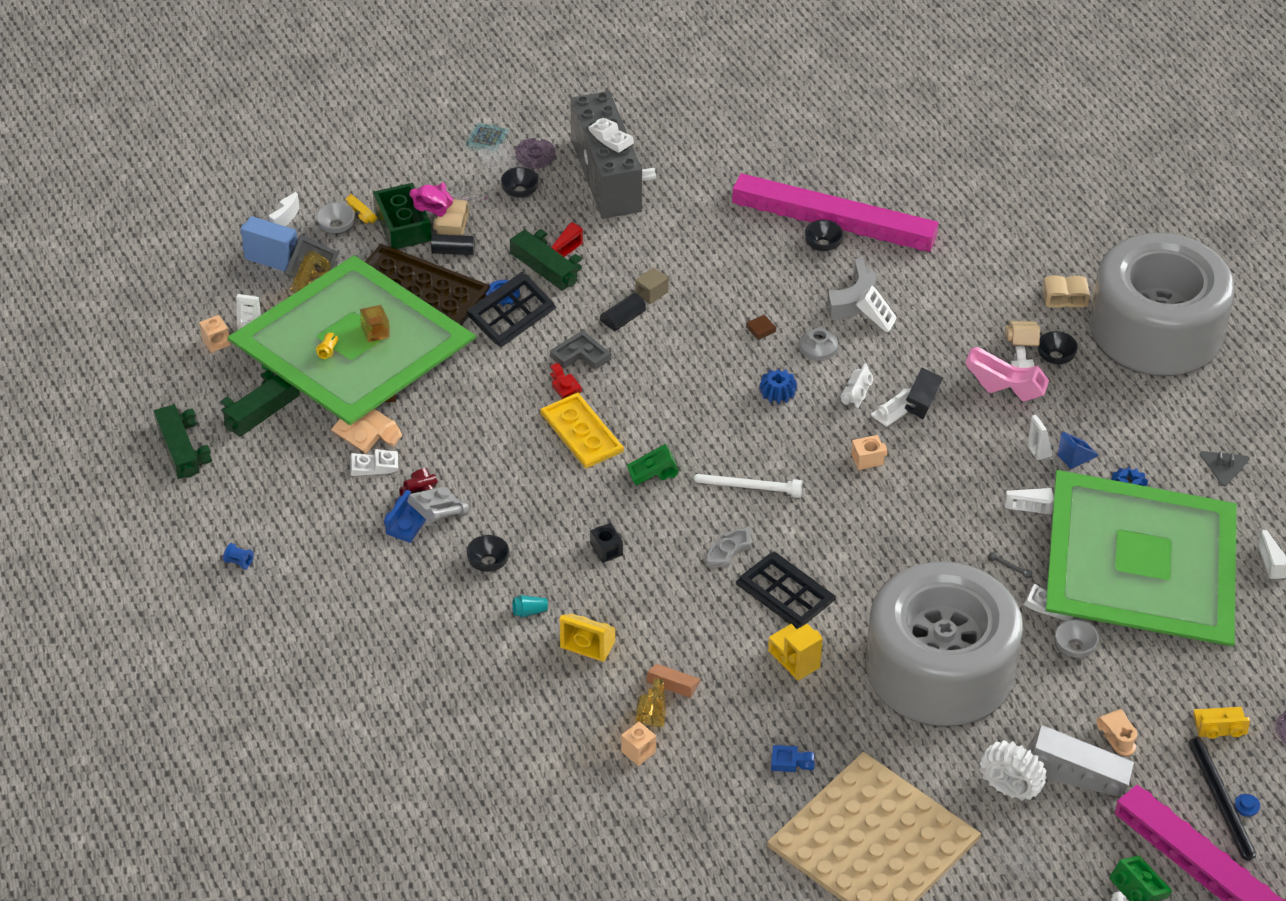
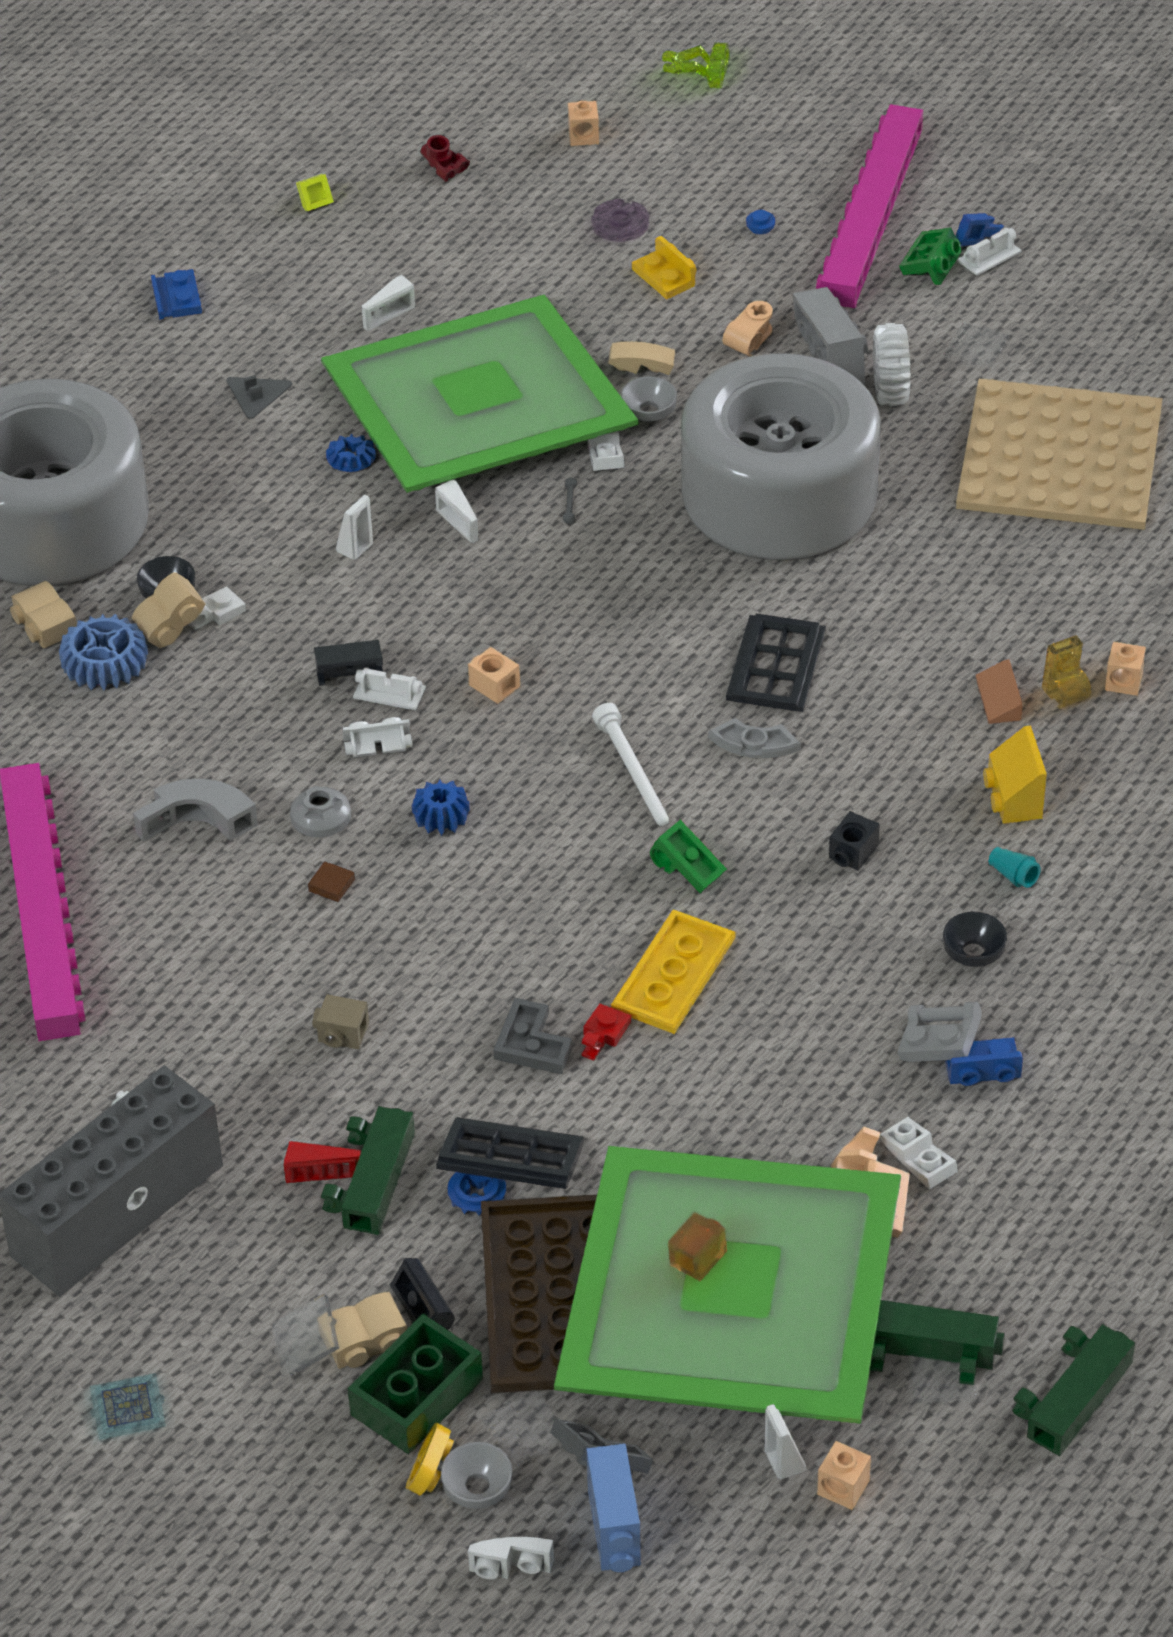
camera: 120 degrees left, 0 degrees up
(307, 270) = (640, 1428): clear yellow plate -> none
(325, 349) = (787, 1275): yellow pin -> none
(419, 482) = (922, 1075): dark red plate -> none
(432, 198) = (375, 1328): dark pink animal -> none
(497, 159) = (177, 1358): clear piece -> none
(519, 177) = (222, 1273): black piece -> none
(535, 153) = (127, 1330): clear purple tile -> none
(608, 133) = (124, 1120): white slope -> none
(623, 312) = (414, 1036): black brick -> none
(788, 758) = (1022, 553): blue plate -> none
(797, 649) = (872, 594): yellow brick -> none
(823, 230) = (98, 876): black piece -> none
(872, 304) = (223, 765): white slope -> none
(998, 375) = (262, 594): bright pink arch -> none
(1014, 302) = (103, 651): none -> medium blue gear
(1074, 450) = (336, 502): blue slope -> none
(1127, 660) = (631, 355): none -> tan slope
(1222, 798) = (766, 241): black axle -> none

